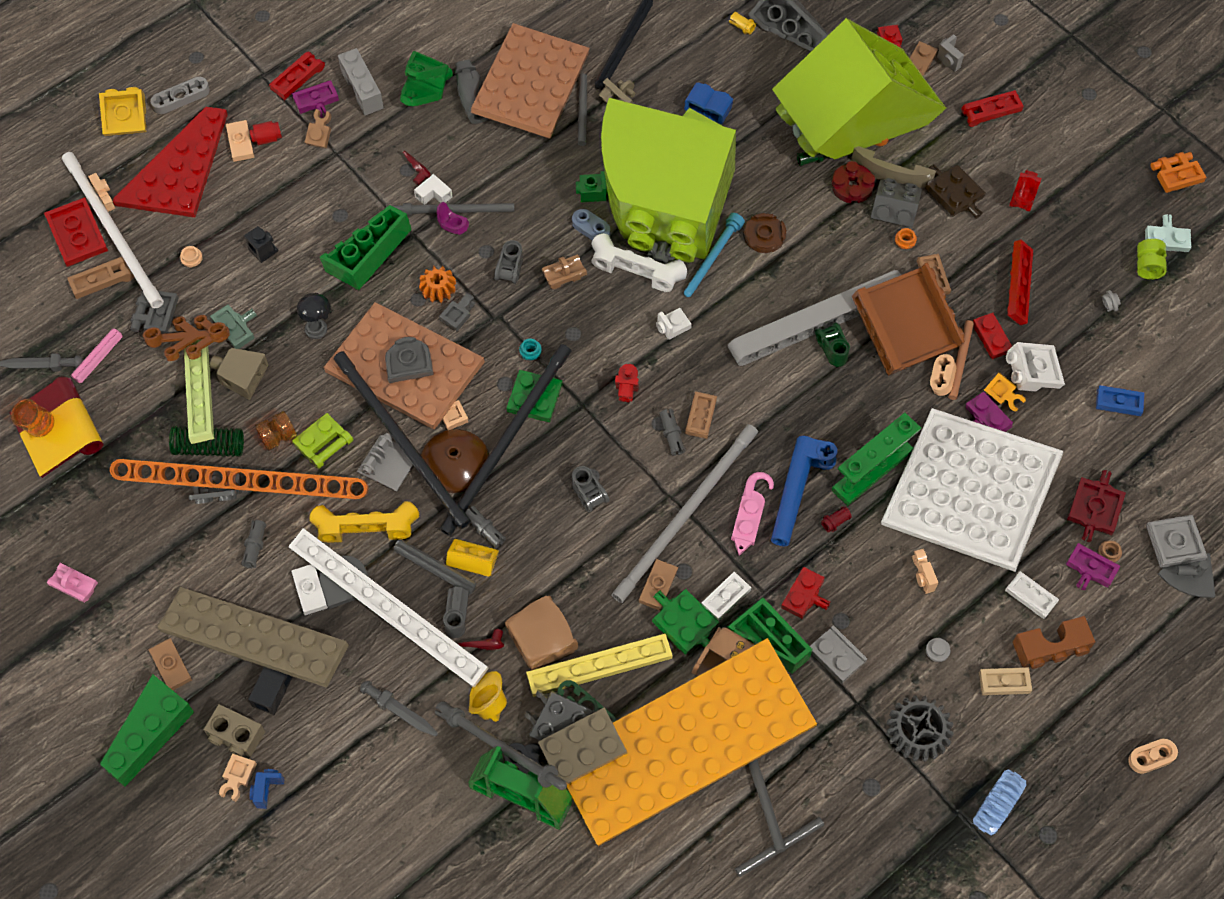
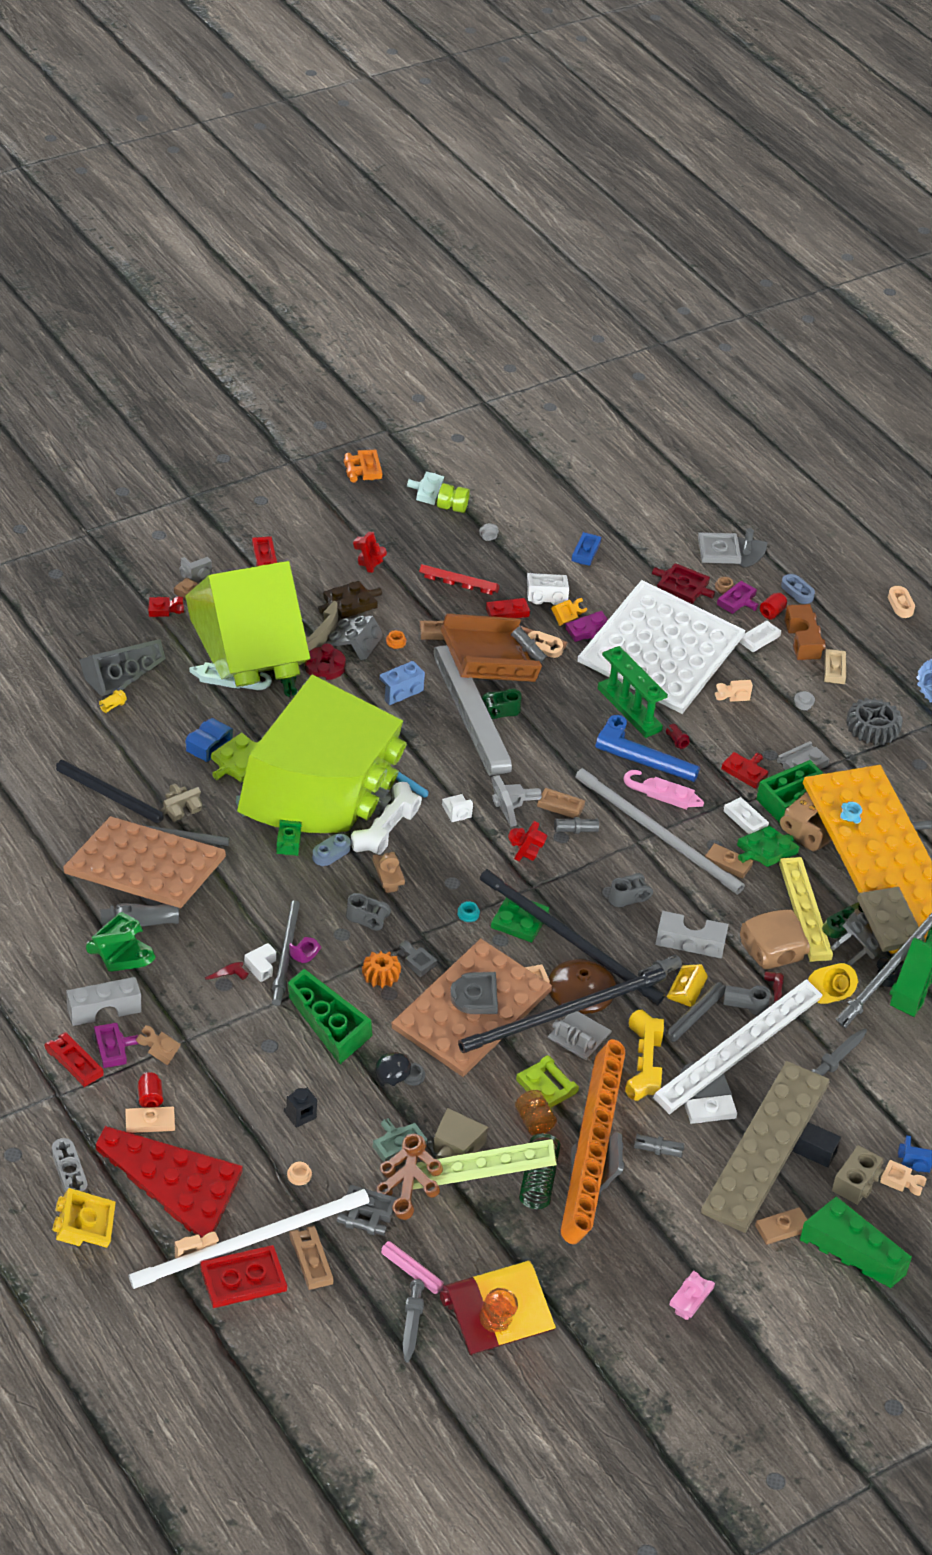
camera: 85 degrees left, 20 degrees down
(533, 572) = (675, 935): none -> light grey arch
(684, 358) = (511, 797): none -> light grey piece
(718, 684) = (851, 812): none -> medium azure plate
(834, 248) = (403, 682): none -> medium blue bracket
(929, 357) = (528, 644): none -> dark grey pin
(1089, 605) = (773, 605): none -> red brick
(1132, 634) = (798, 588): none -> sand blue plate

